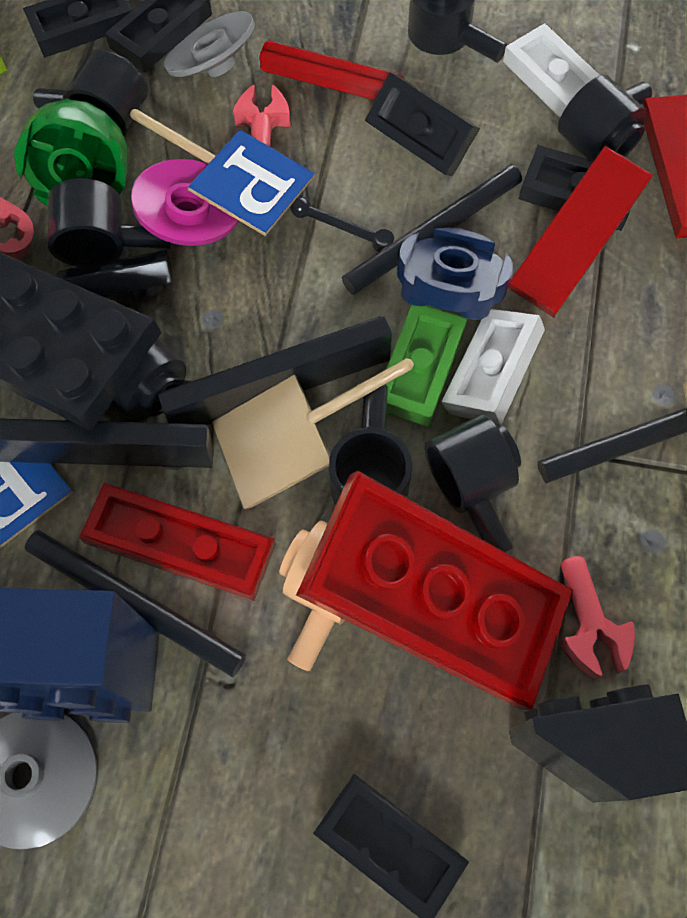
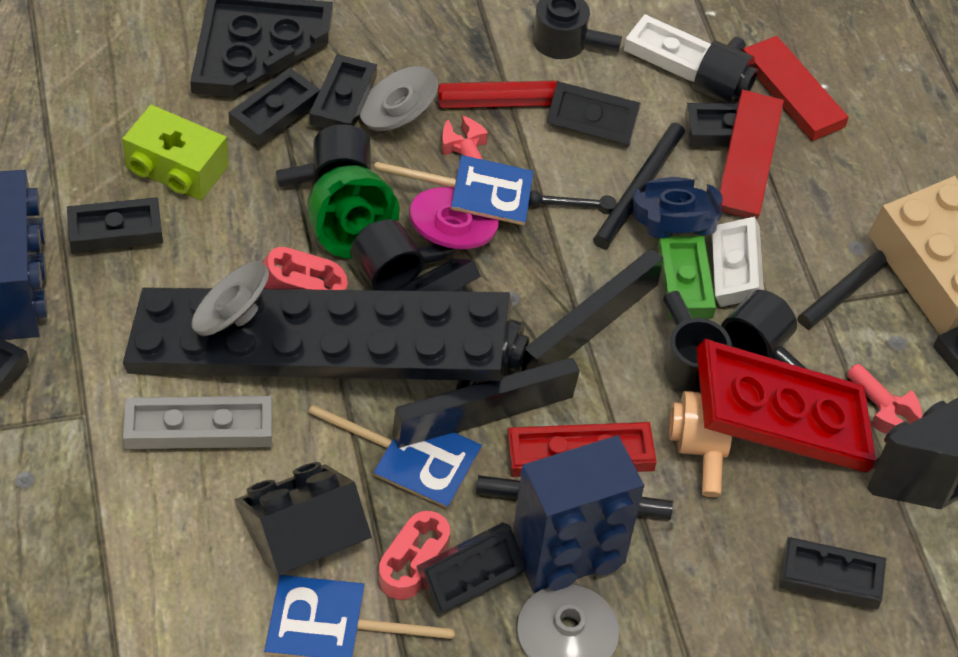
camera: 30 degrees left, 15 degrees down
(276, 435) = (616, 357): tan piece -> none

